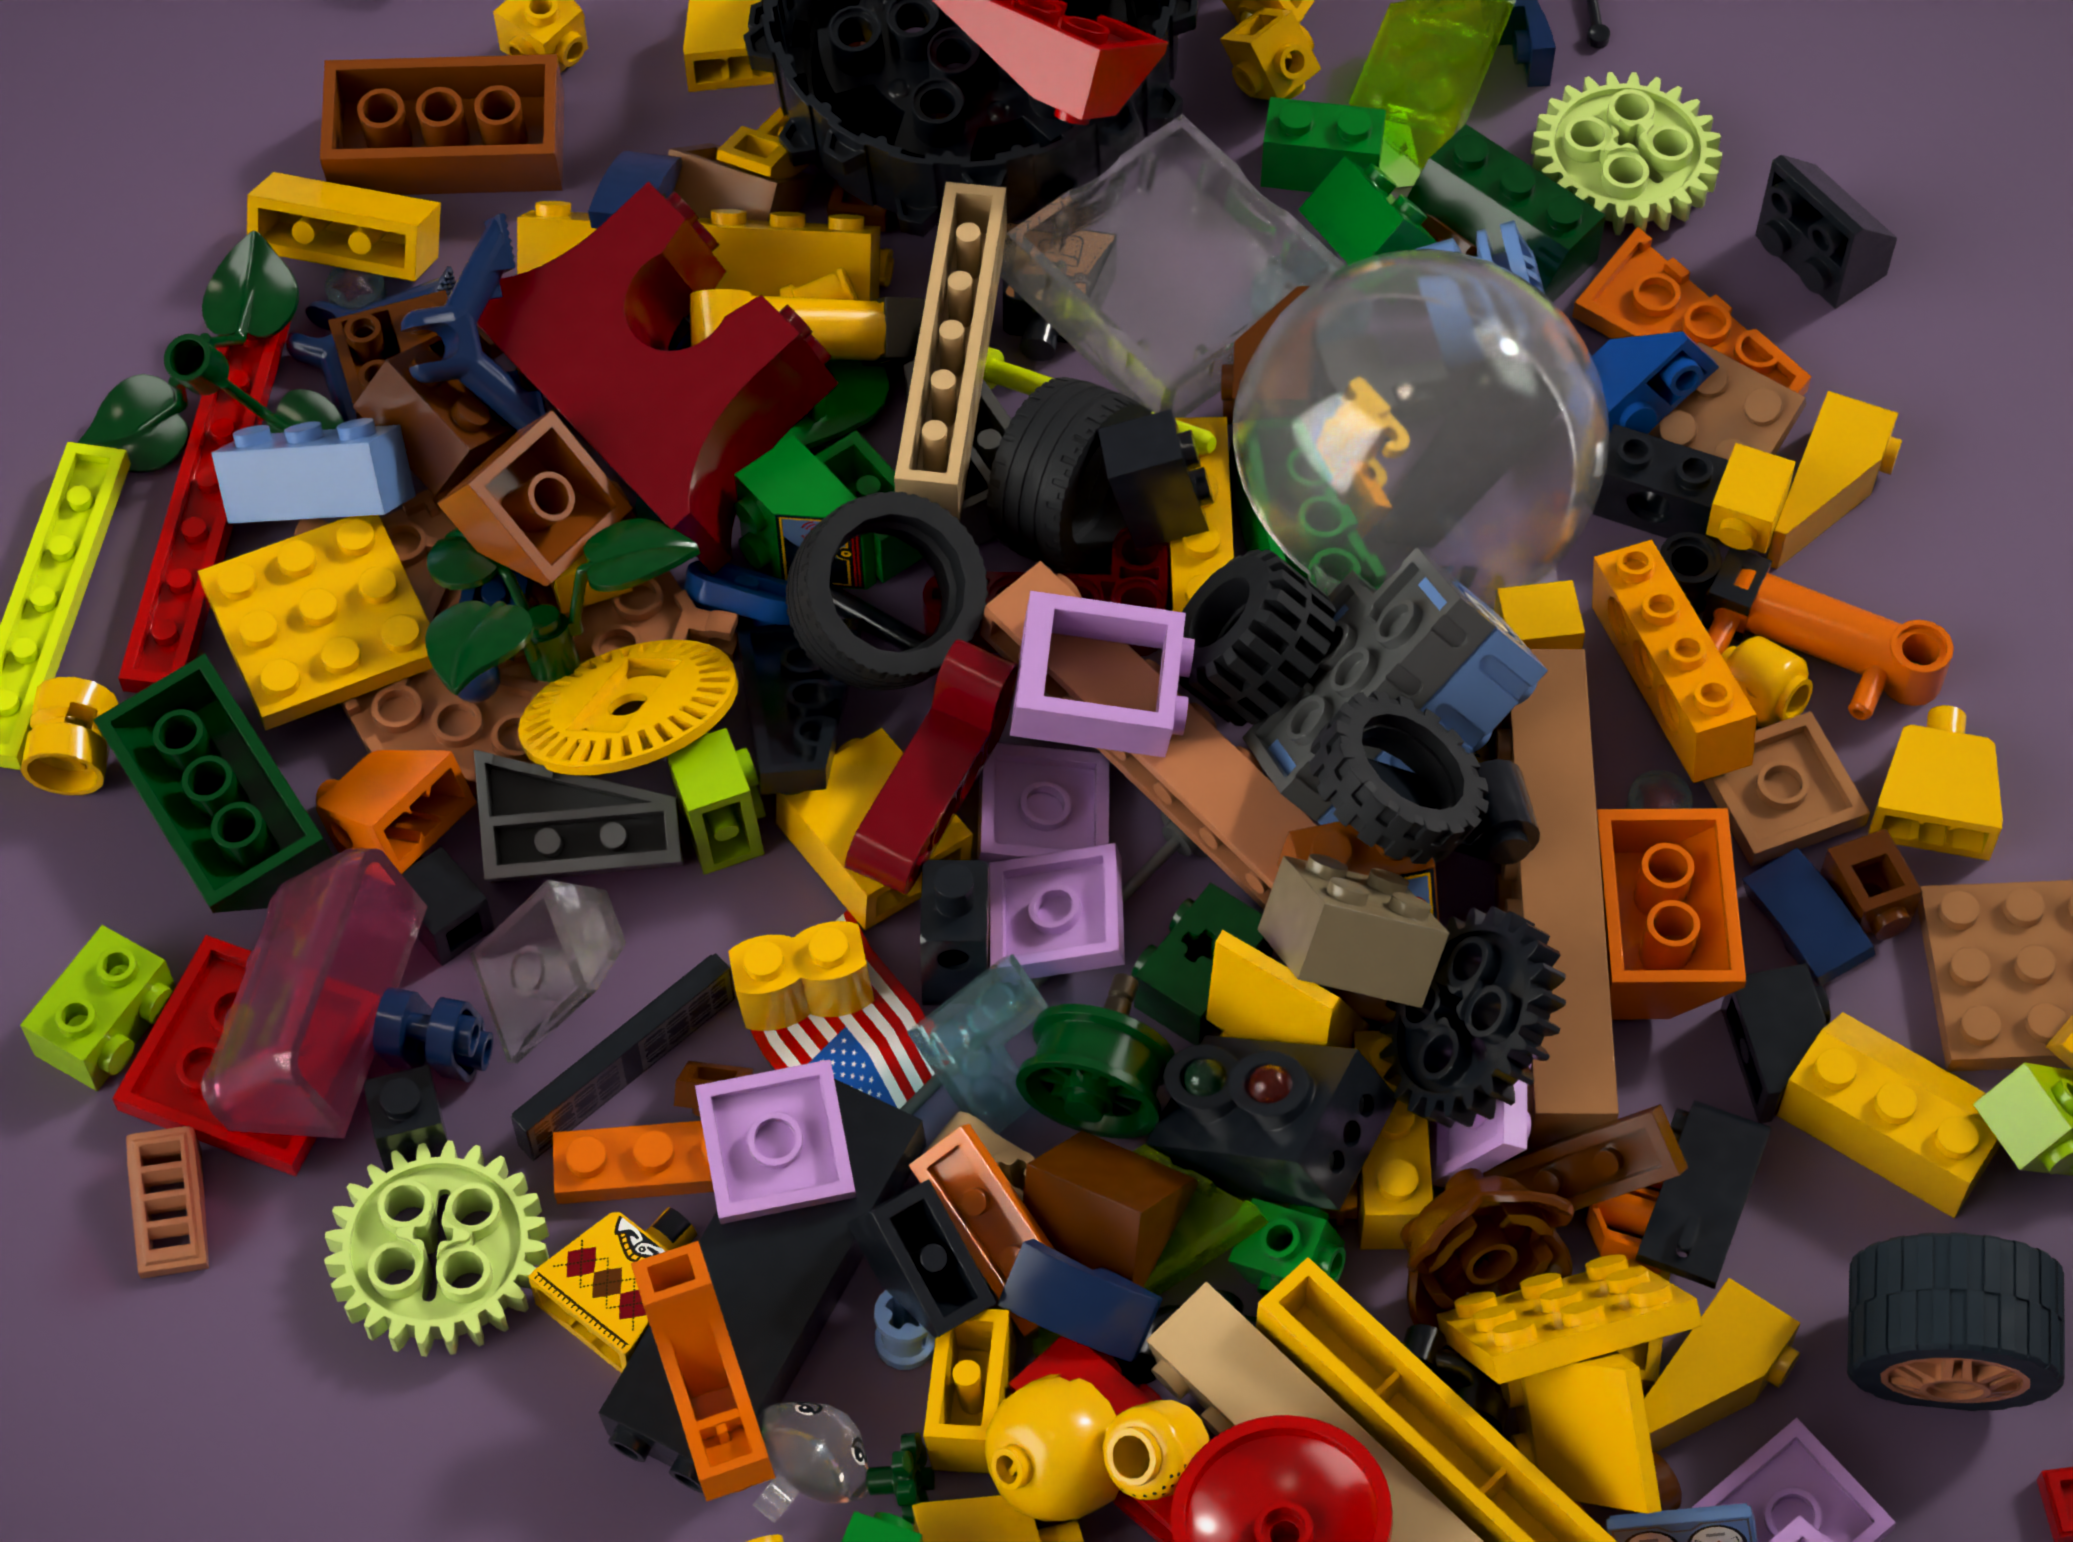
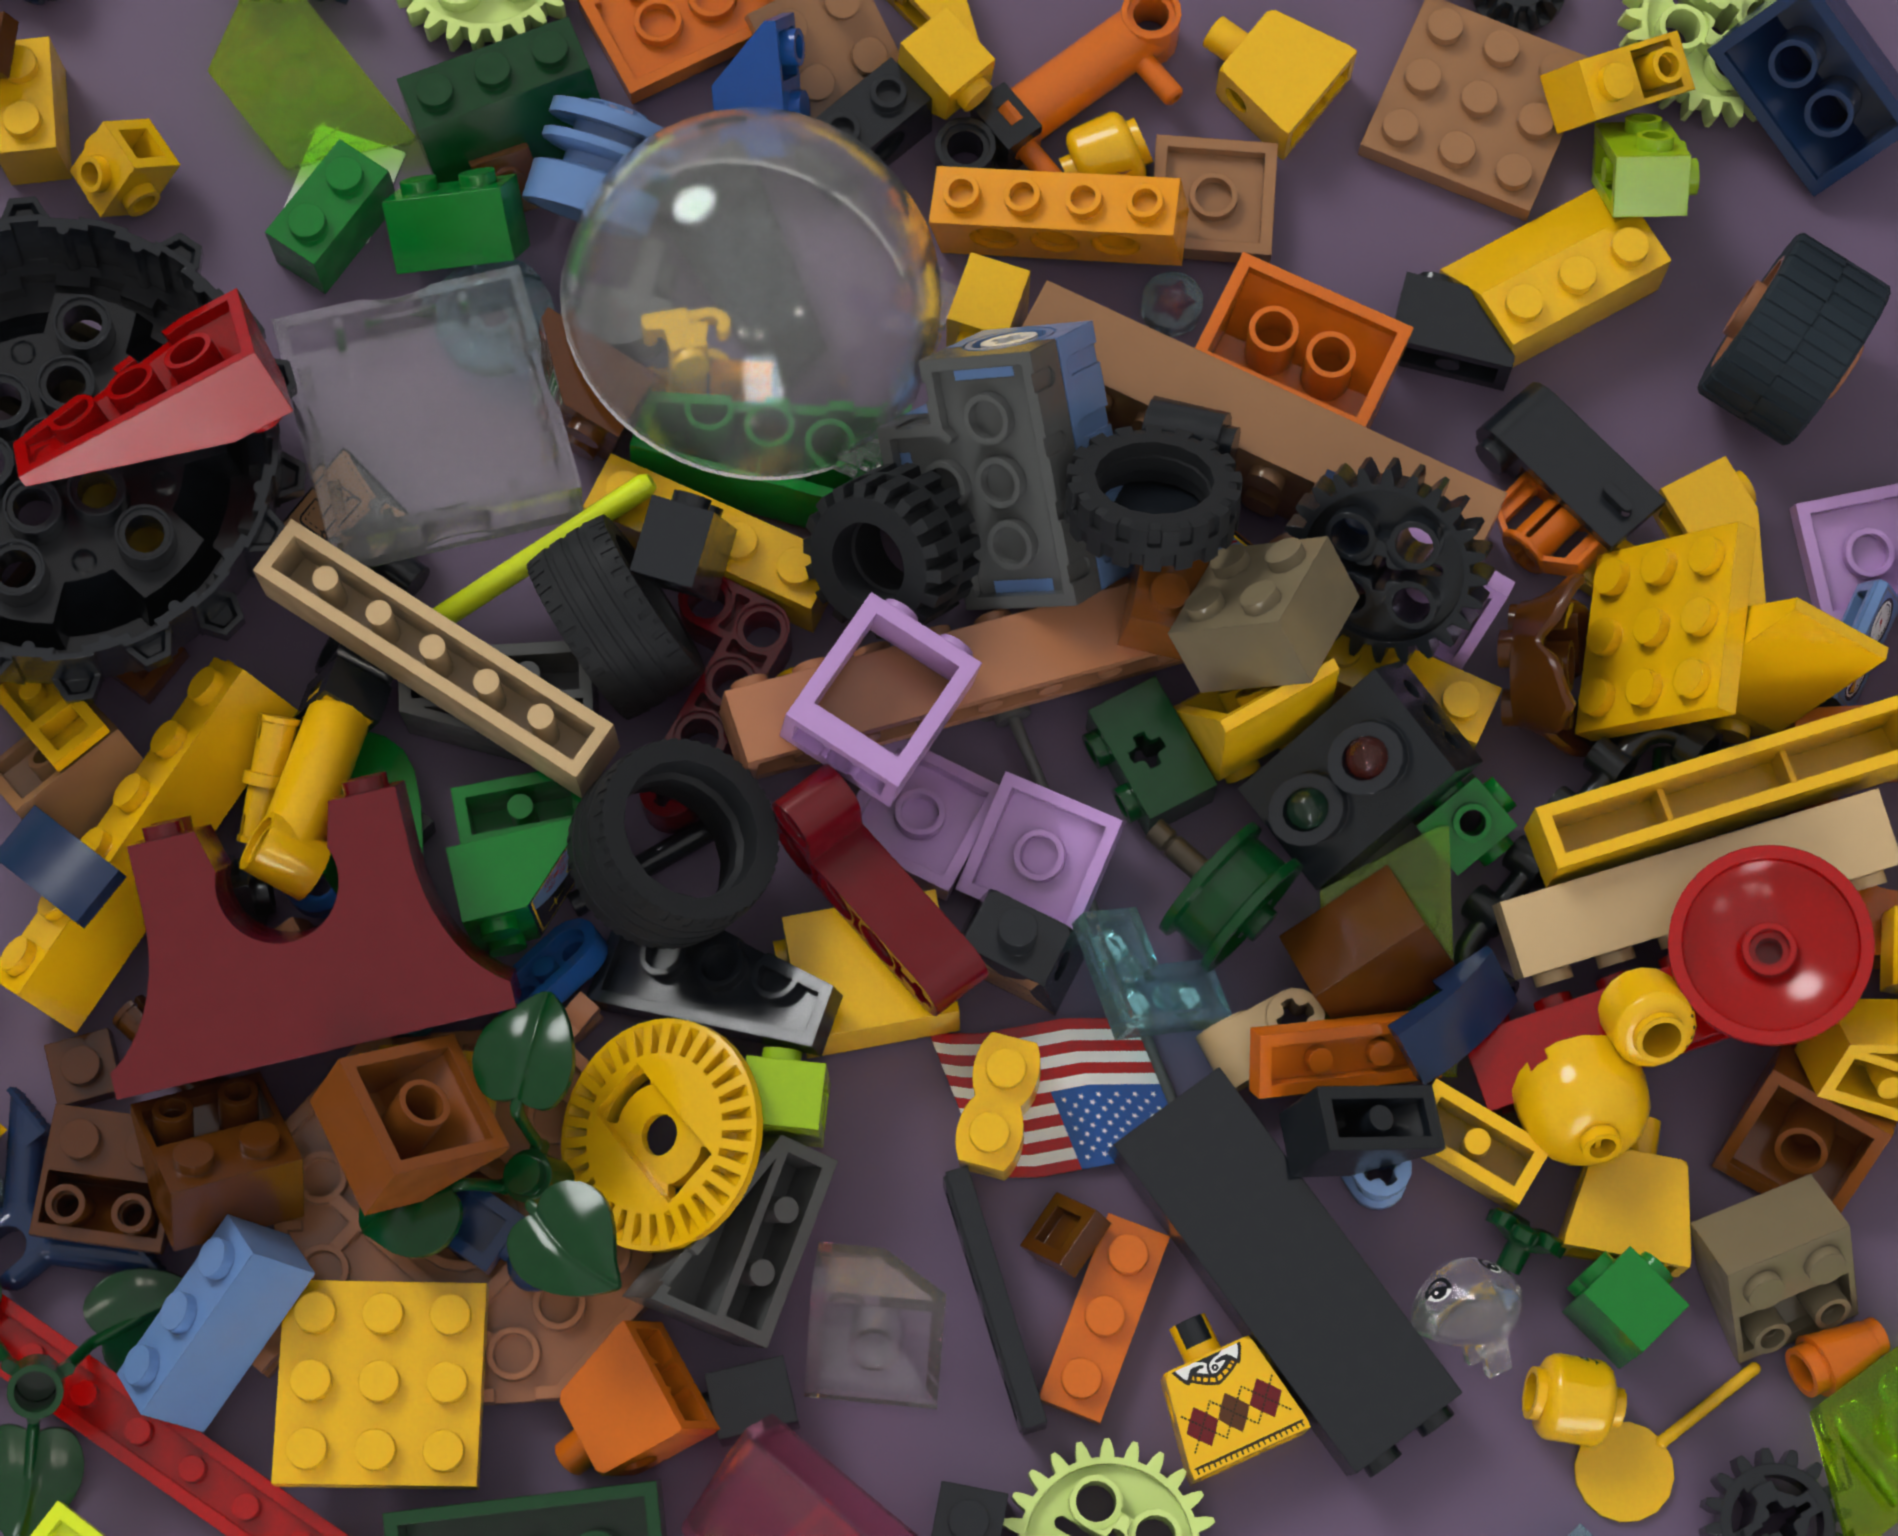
camera: 65 degrees left, 15 degrees up
(446, 1037) = (917, 1448): dark blue brick -> none
(458, 329) = (178, 1108): dark blue piece -> none
(702, 1371) = (1401, 1366): orange arch -> none
(775, 1141) = (1189, 1202): lavender plate -> none
(1271, 54) = (202, 203): yellow brick -> none
(1601, 1160) = (1531, 528): reddish brown plate -> none
(1809, 916) = (1348, 244): dark blue slope -> none
(1877, 870) = (1351, 164): reddish brown brick -> none

